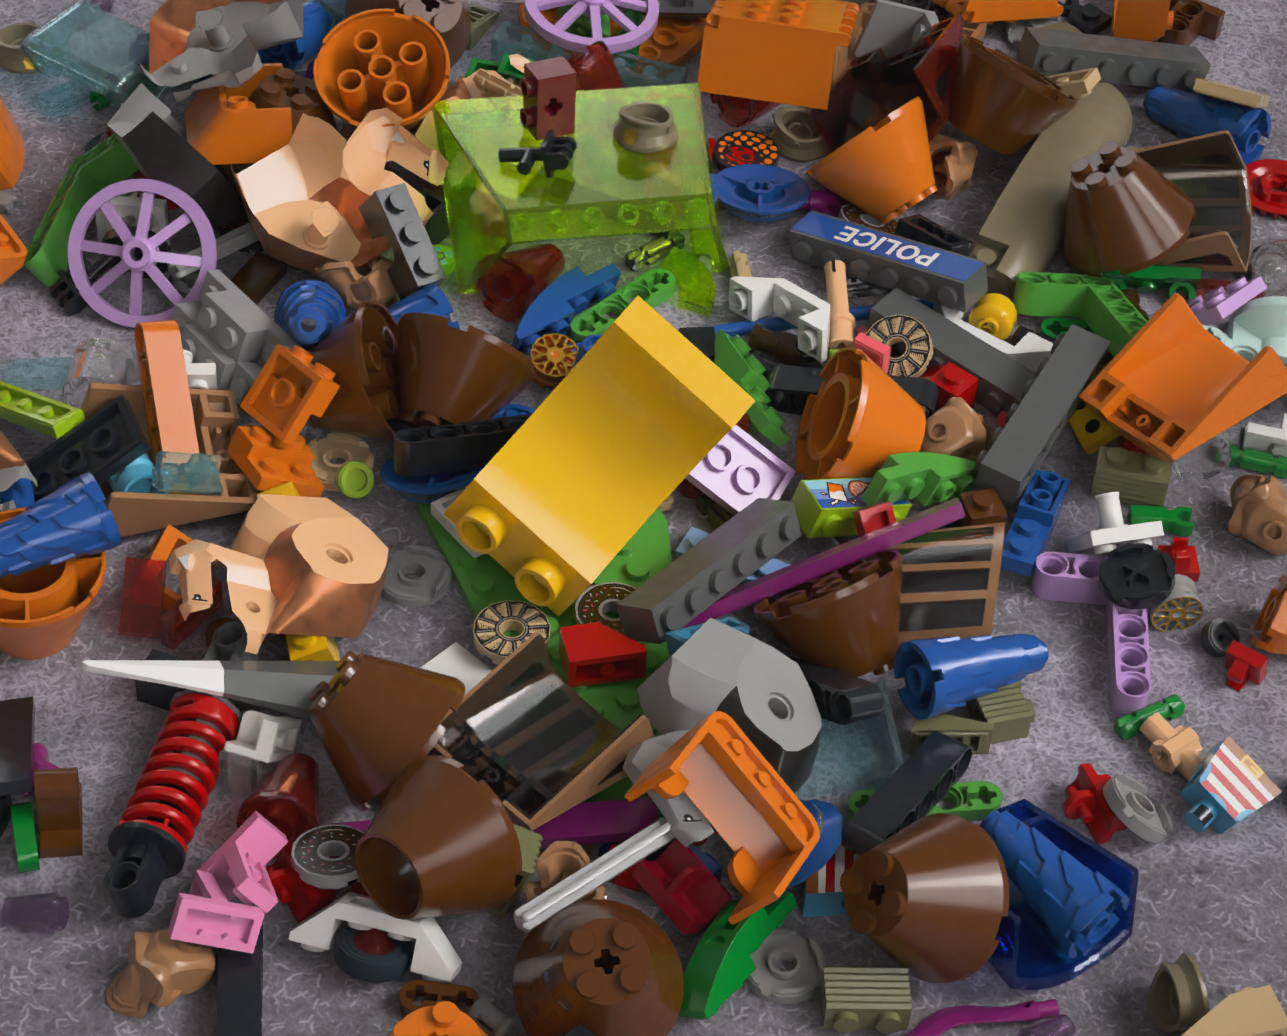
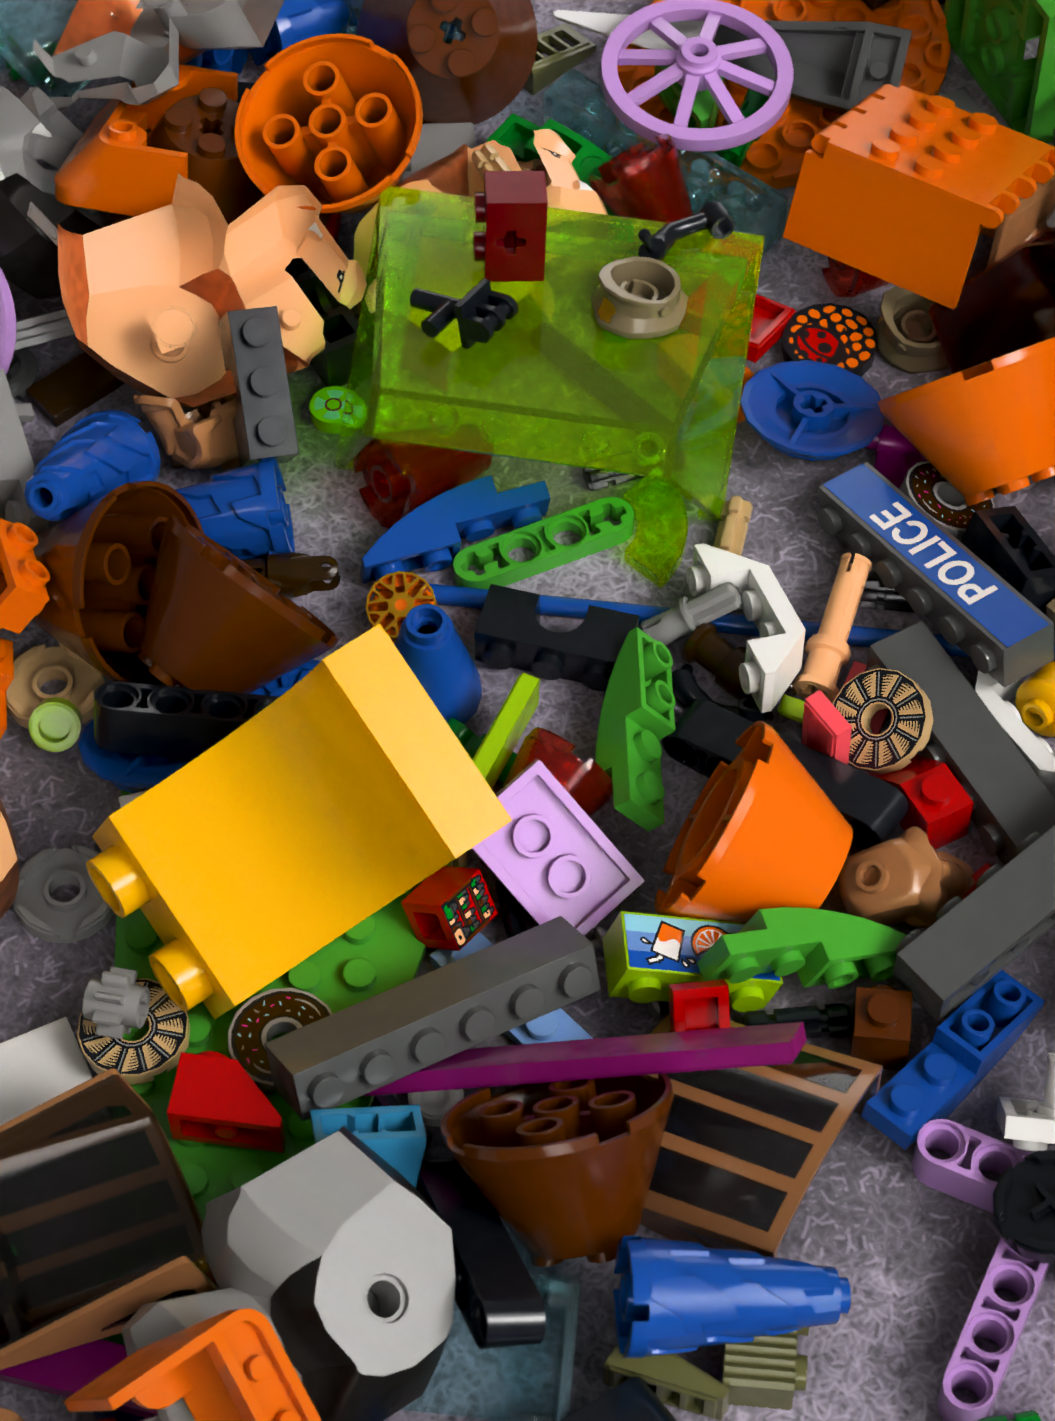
camera: 25 degrees right, 10 degrees up
(501, 611) = (116, 1002): none -> light grey gear
(662, 76) = (711, 217): none -> black piece
(680, 517) = (449, 907): none -> red brick
(745, 320) = (691, 614): none -> light grey axle

